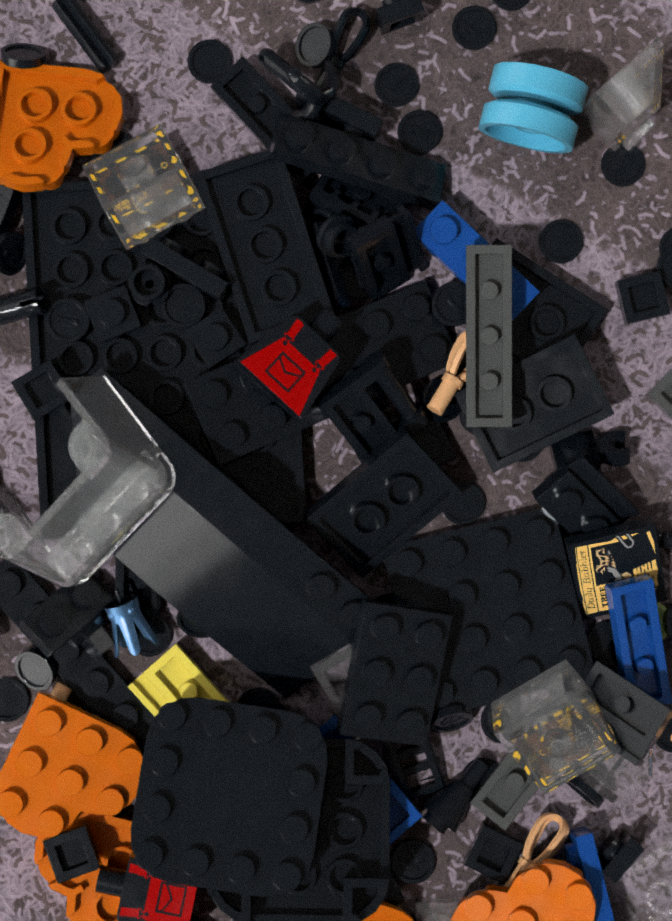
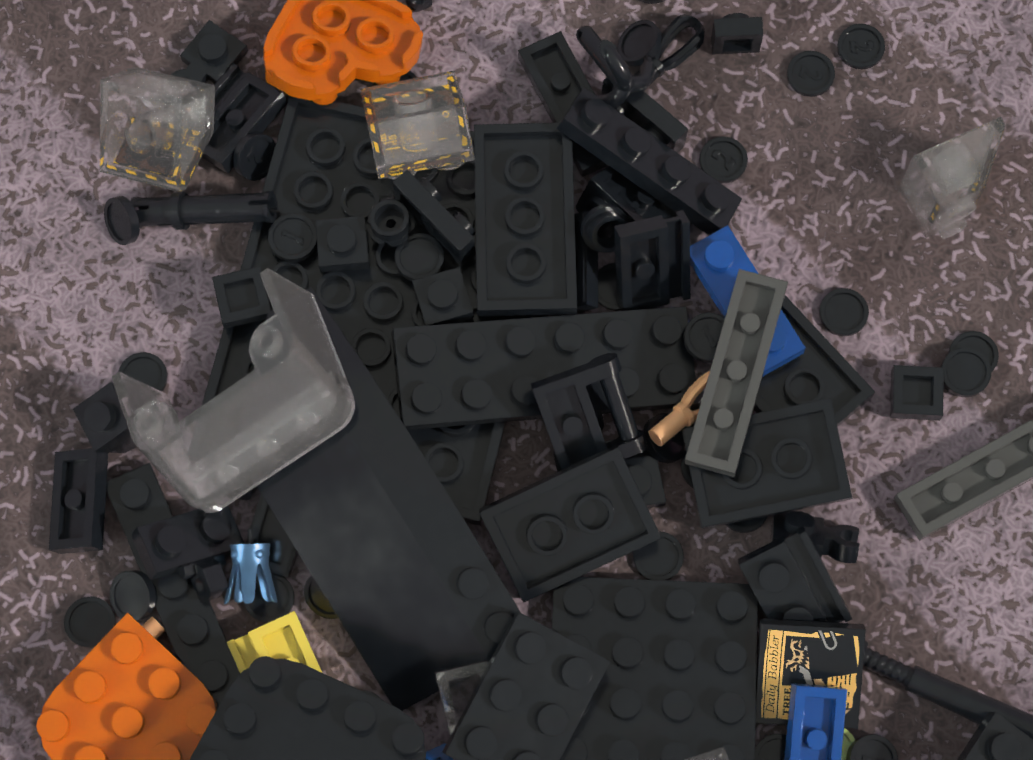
camera: 25 degrees right, 15 degrees down
(208, 61) = (523, 28): black piece -> none
(294, 361) = (517, 335): torso -> none
(396, 85) = (713, 106): black piece -> none
(533, 107) = (850, 159): medium azure wheel -> none
(623, 166) = (932, 255): black piece -> none

